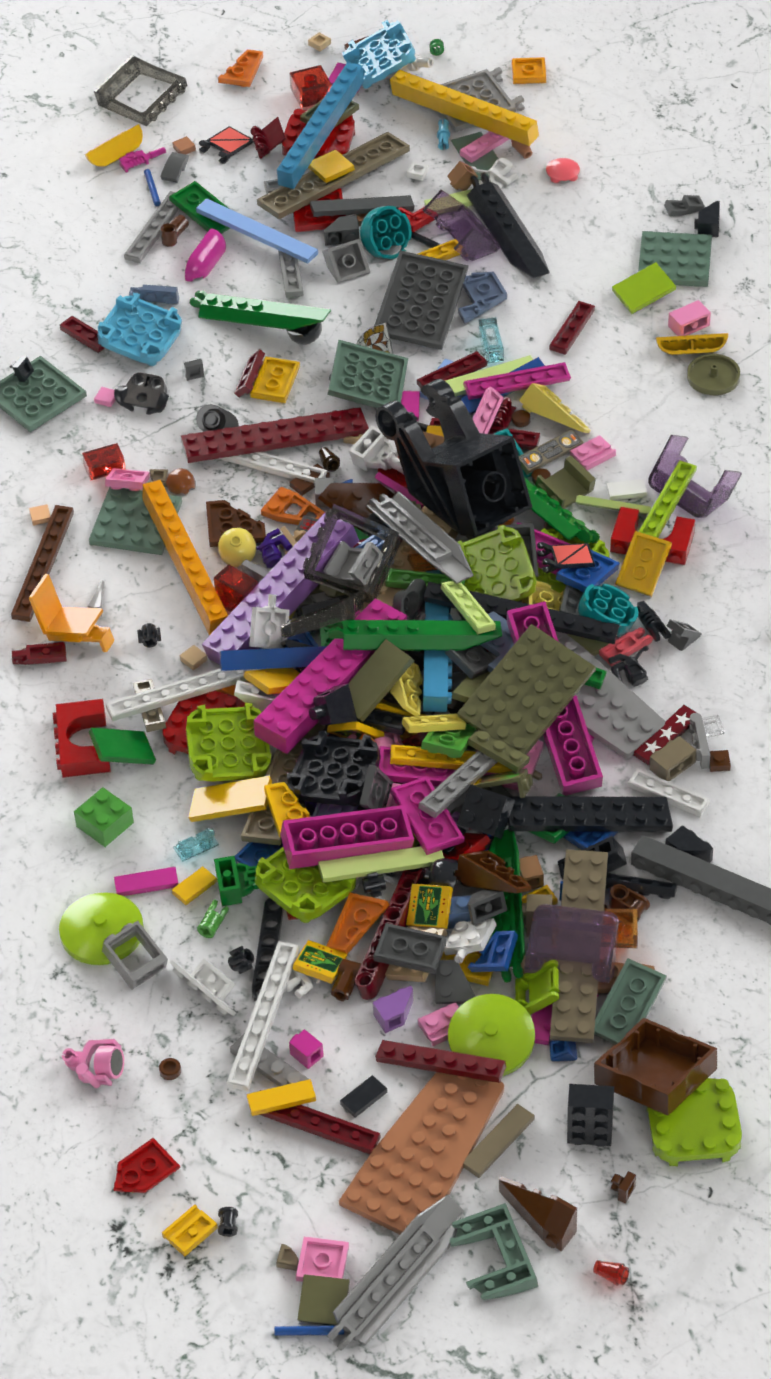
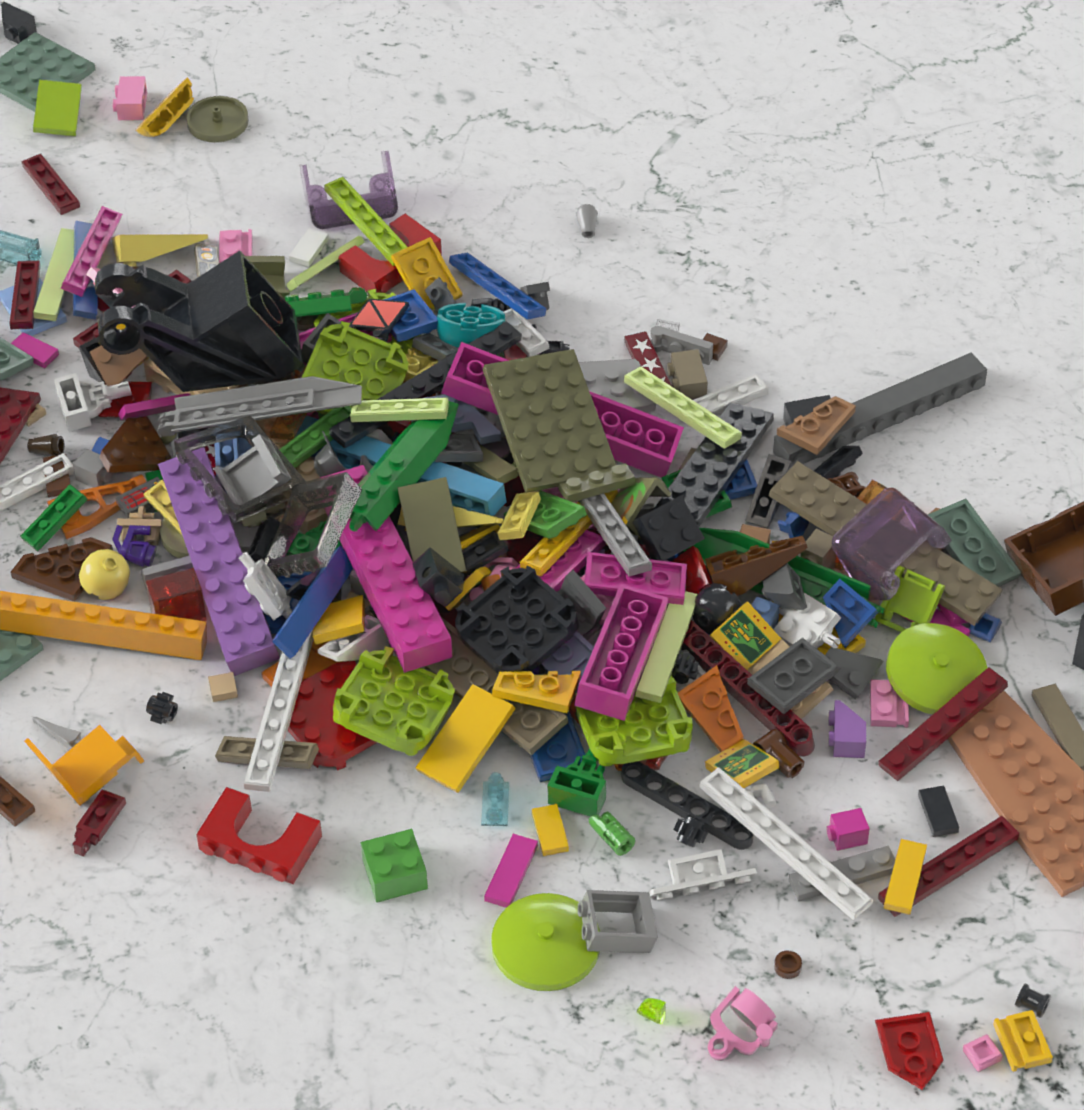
camera: 60 degrees left, 0 degrees up
(80, 1011) = (653, 1009): none -> clear neon green tile
(122, 746) = (309, 801): green tile -> none
(167, 1212) = (982, 1053): none -> bright pink tile
(265, 496) = (53, 517): none -> green tile
(626, 767) = (682, 407): none -> yellowish green tile
(629, 643) = (531, 341): none -> white tile
(631, 580) = (439, 294): none -> dark grey hinge
(664, 853) = (819, 426): none -> medium nougat wing
(667, 607) = (497, 286): none -> blue tile

